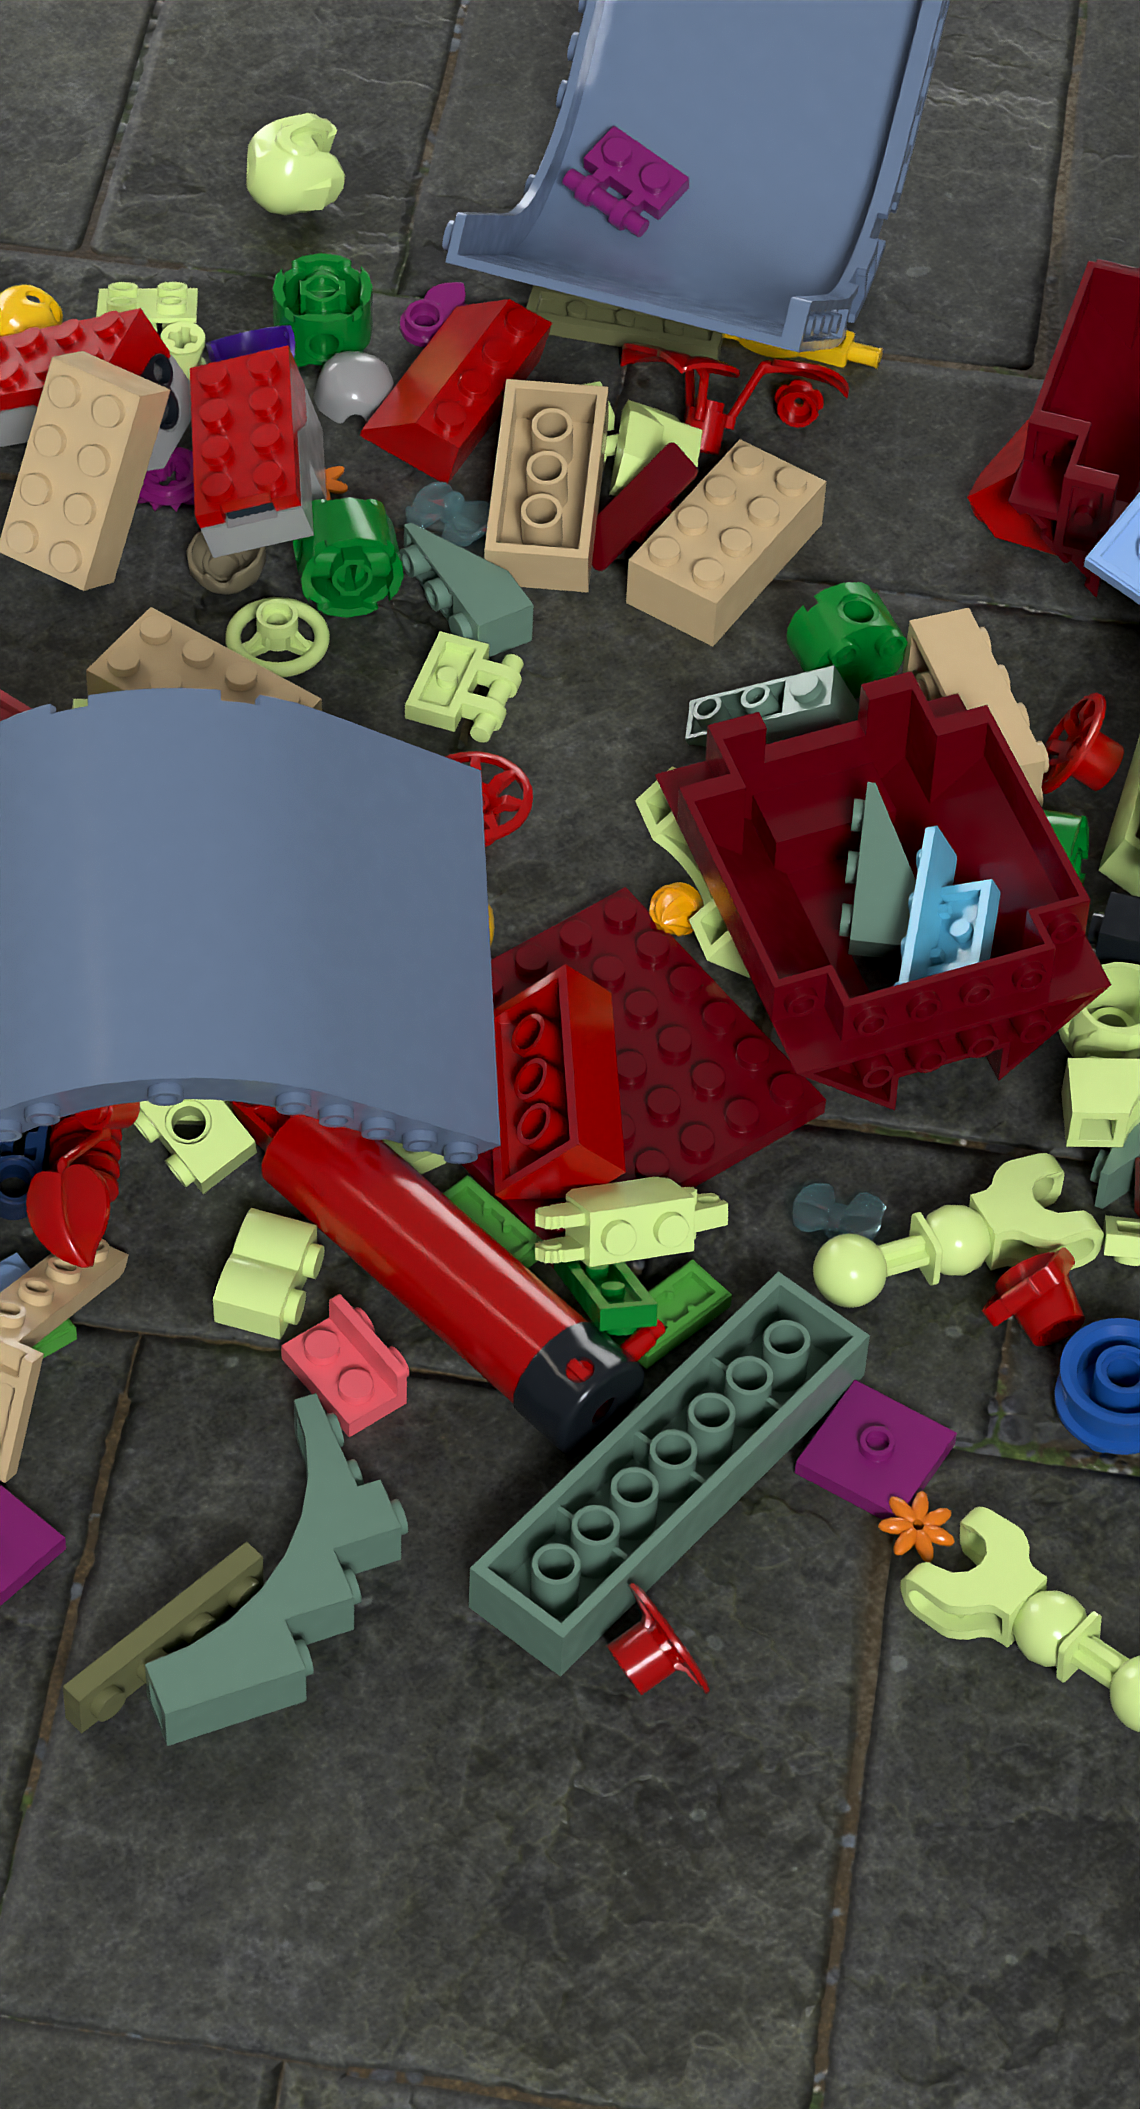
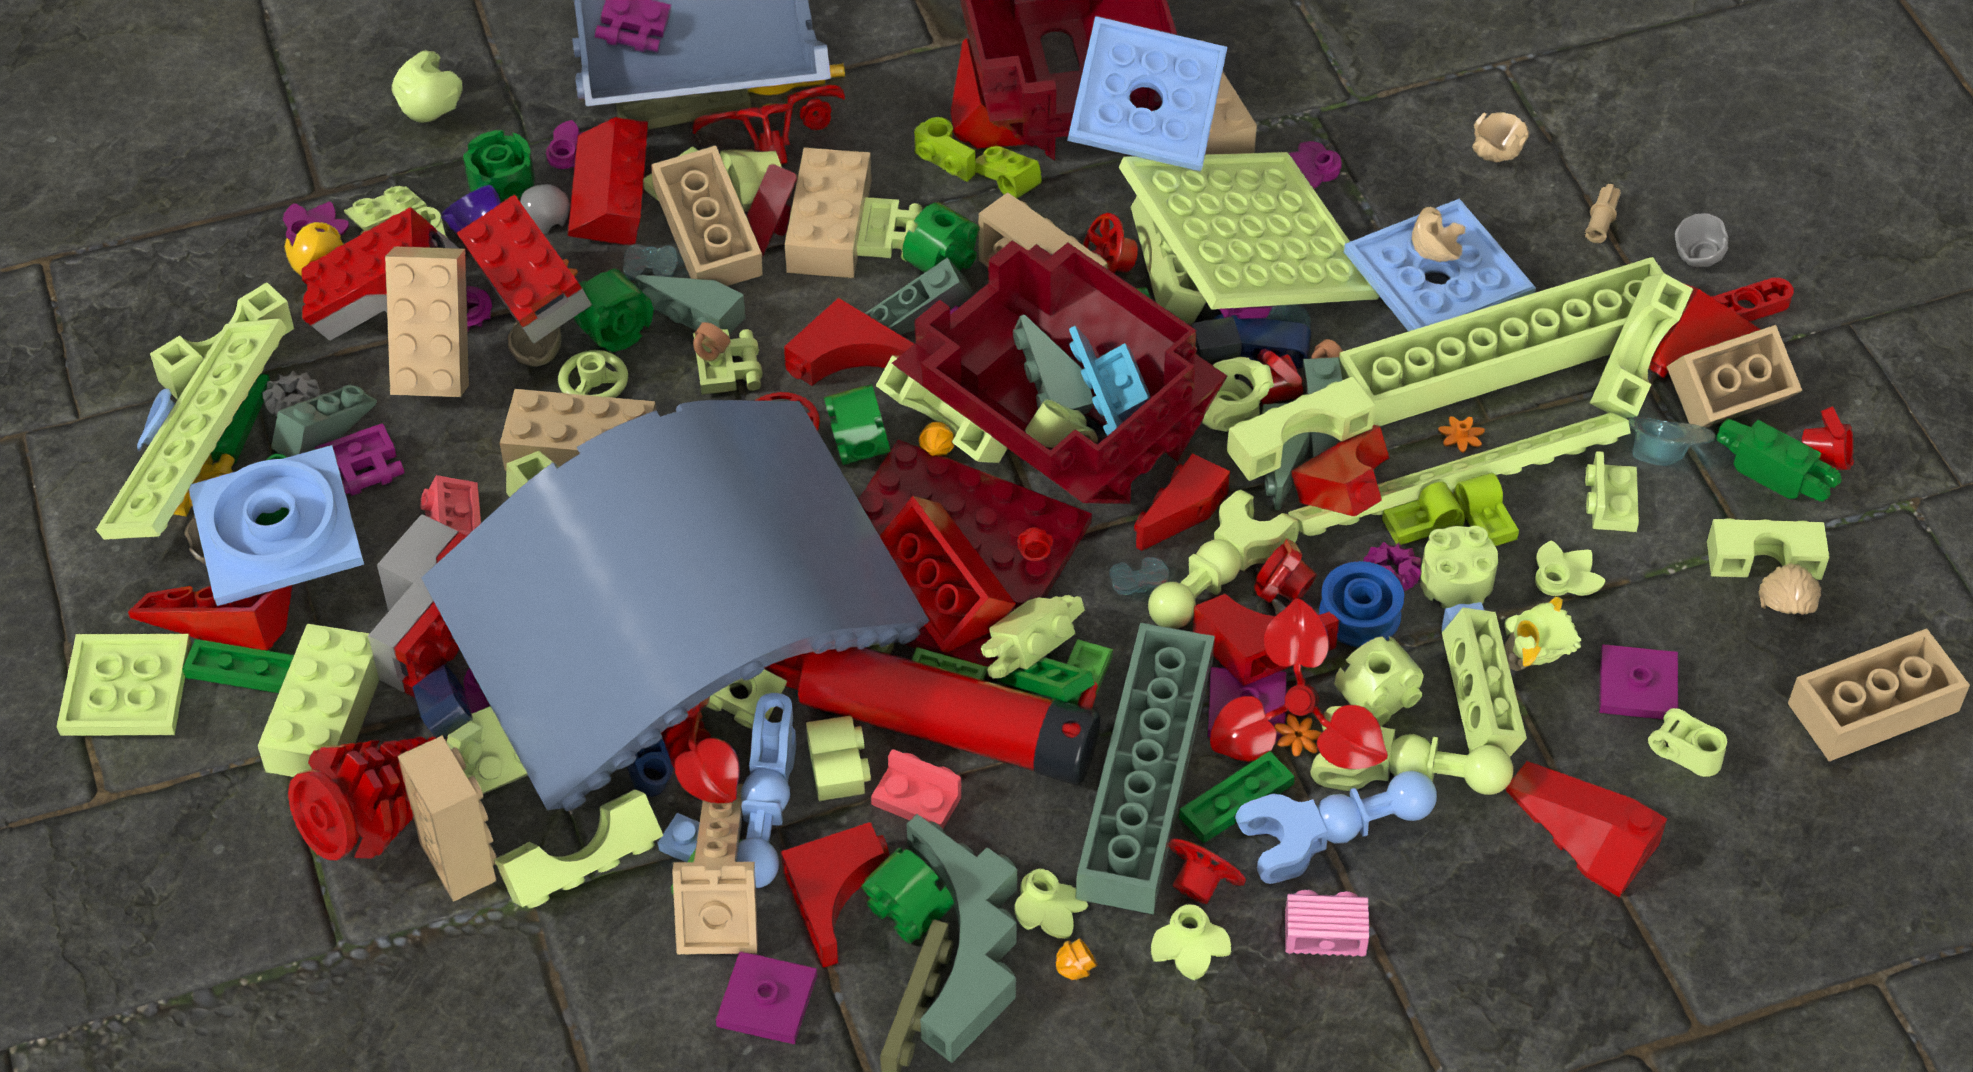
camera: 25 degrees left, 0 degrees up
(63, 285) = (297, 217): none -> magenta plate
(140, 1274) = (767, 787): none -> light blue piece
(153, 1423) = (827, 875): none -> red arch
(233, 1493) = (907, 894): none -> green brick
(412, 1686) = (1075, 960): none -> light orange plate
(422, 1603) = (1047, 904): none -> yellowish green plate
(452, 644) = (712, 338): none -> nougat tile
(576, 842) = (857, 424): none -> green brick
(582, 1743) = (1188, 946): none -> yellowish green plate
(623, 721) = (839, 341): none -> red arch
(710, 1104) = (1034, 544): none -> red plate
(775, 1571) = (1218, 806): none -> green plate
(783, 588) = (879, 224): none -> yellowish green plate
(785, 1798) = (1326, 924): none -> bright pink brick
(851, 952) = (1056, 422): none -> yellowish green piece
(889, 1663) = (1337, 819): none -> light blue piece
(938, 509) = (936, 144): none -> lime plate
(940, 1379) = (1241, 637): none -> red arch
(961, 1137) = (1187, 500): none -> red slope
(974, 1552) = (1244, 729): none -> red plant
(1017, 585) = (1011, 170): none -> lime plate
(1072, 1500) = (1380, 678): none -> yellowish green brick

